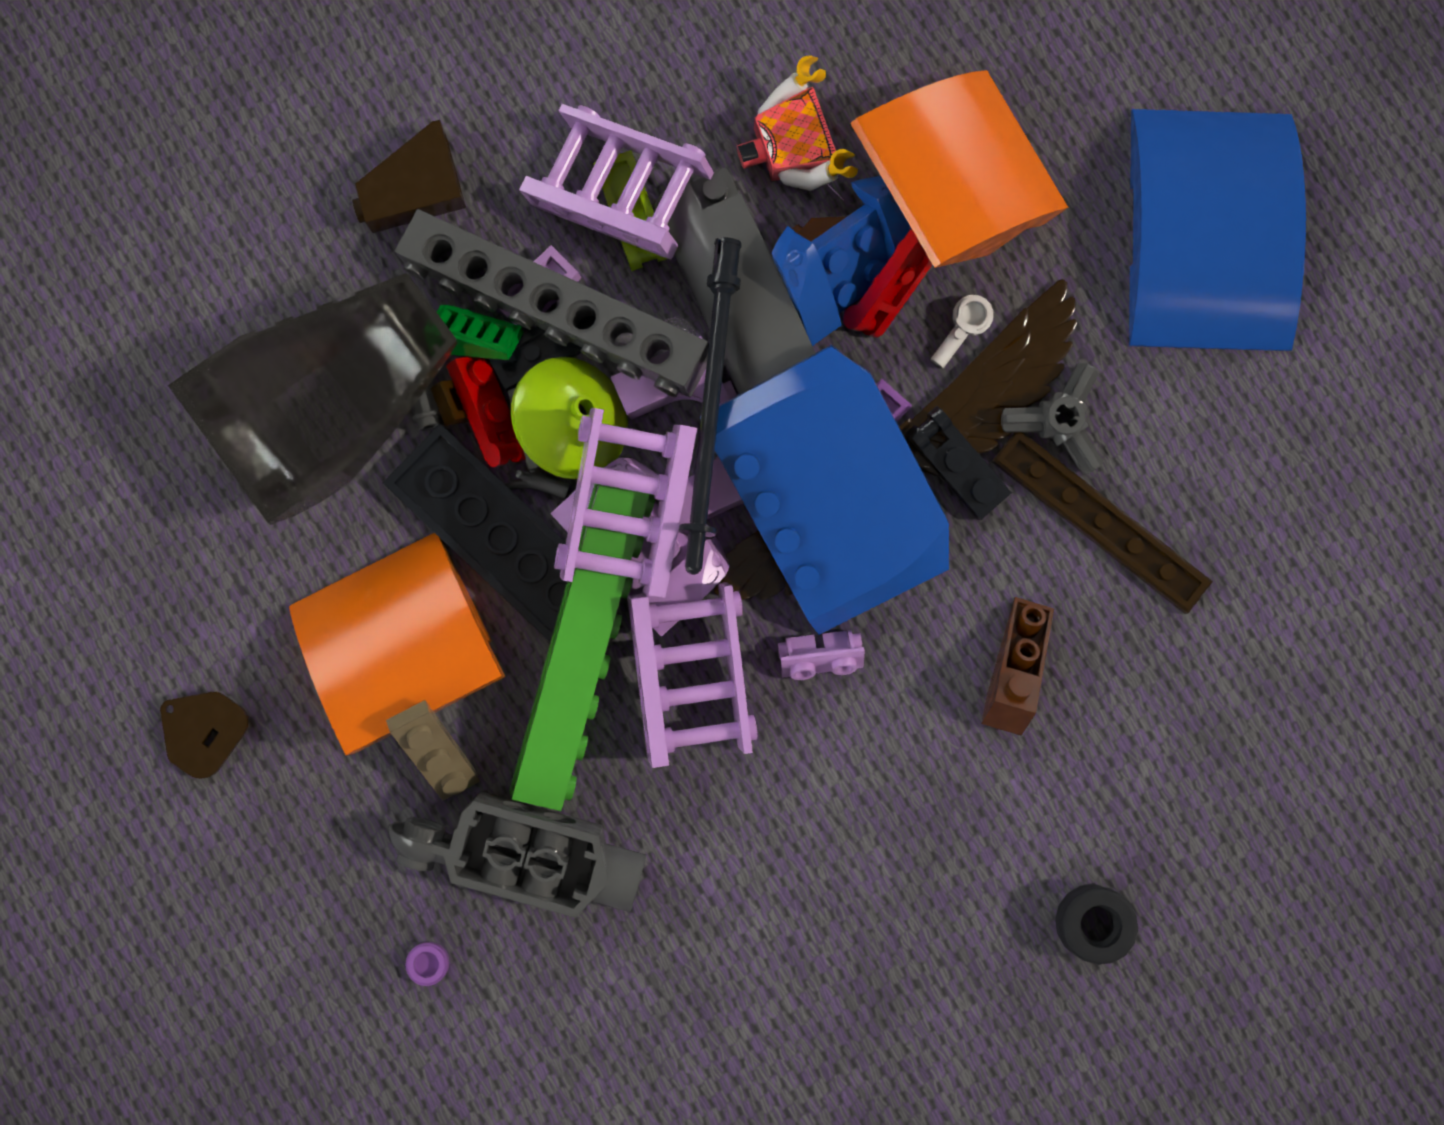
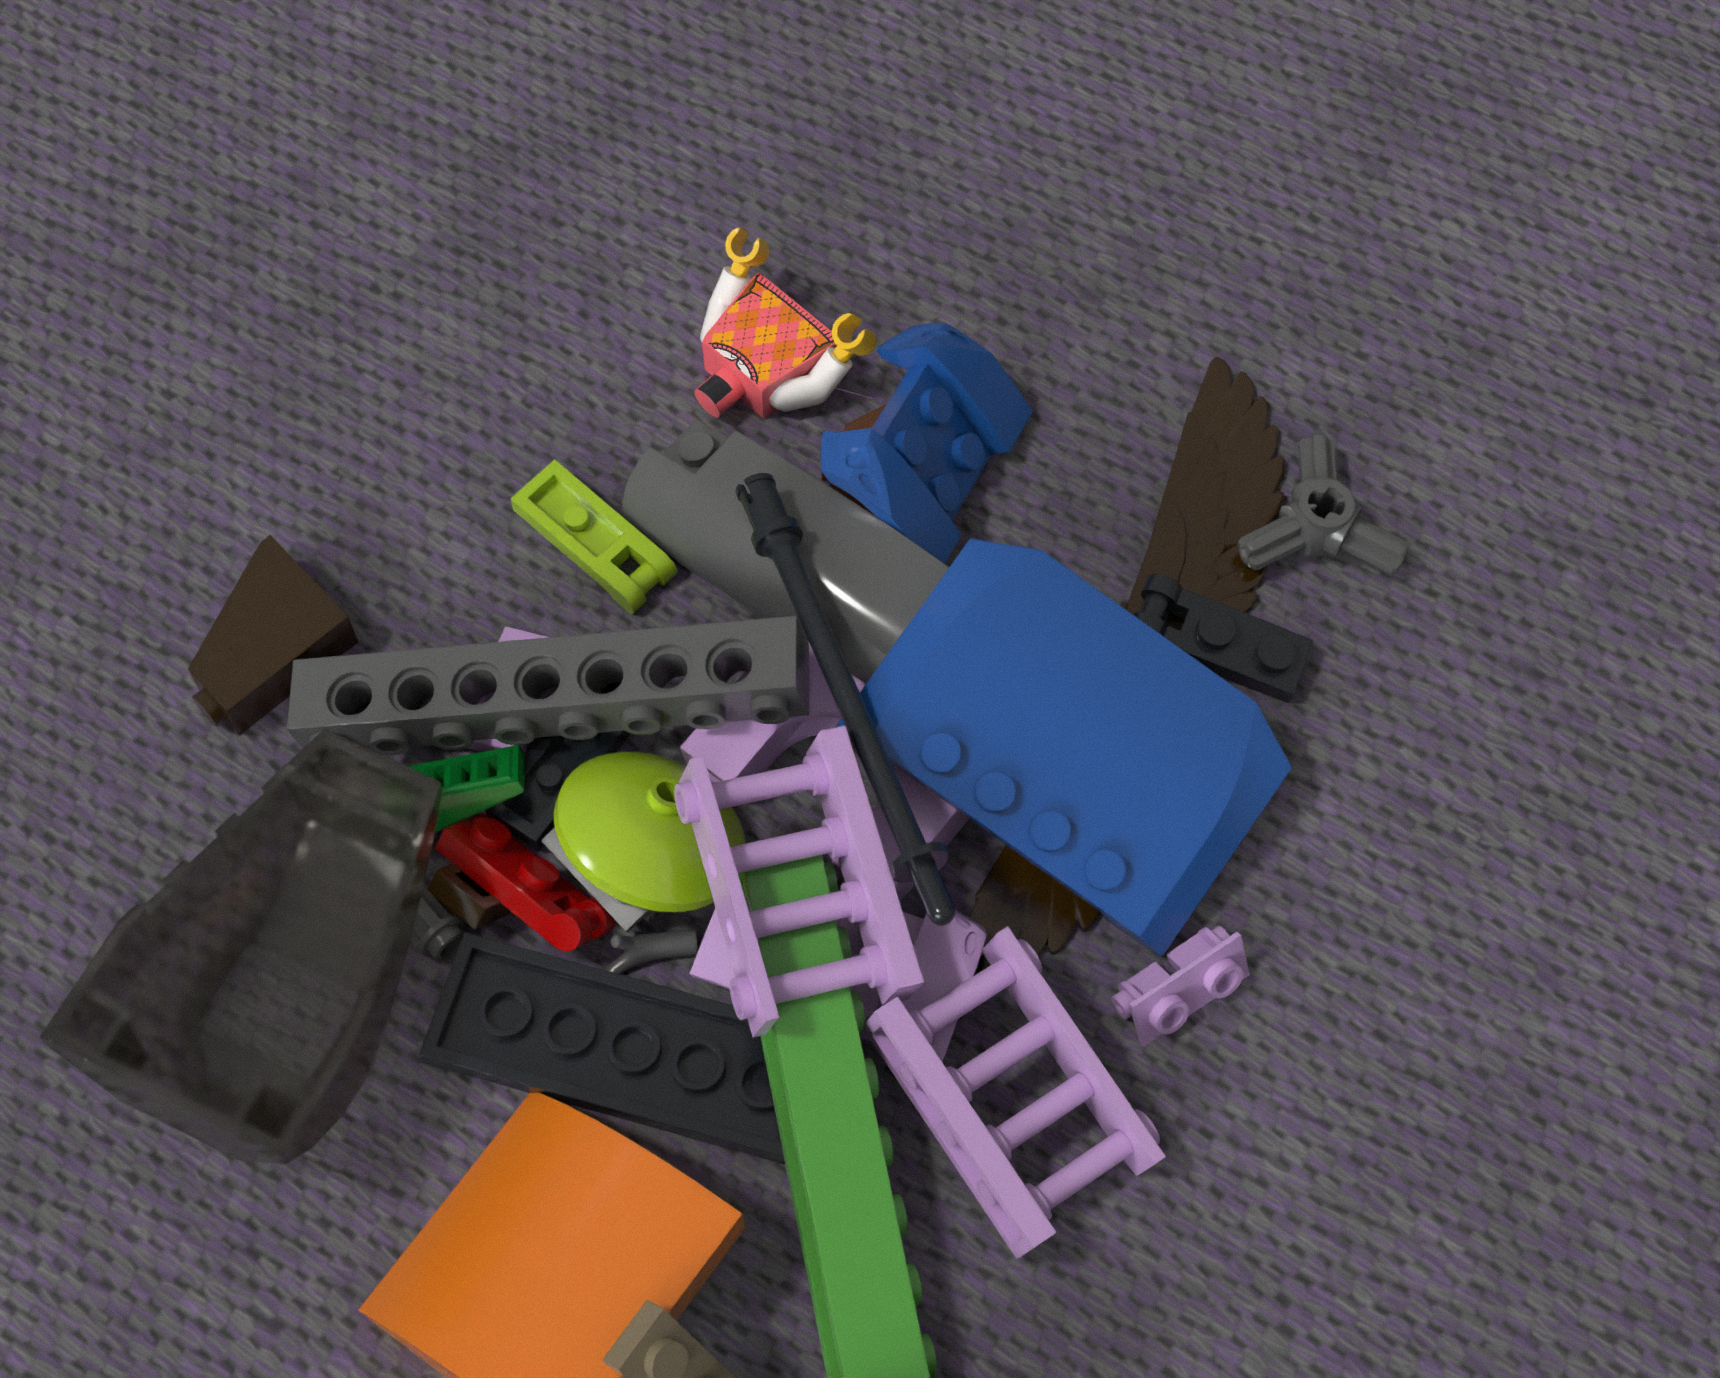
camera: 20 degrees left, 20 degrees down
(618, 219) = (584, 544): lavender fence -> none
(889, 289) = (1002, 454): red plate -> none
(959, 167) = (1007, 274): orange slope -> none
(971, 317) = (1125, 455): white plate -> none
(1019, 668) = (1467, 864): reddish brown slope -> none
(1102, 521) = (1455, 623): dark brown tile -> none
(1216, 230) = (1376, 216): blue slope -> none

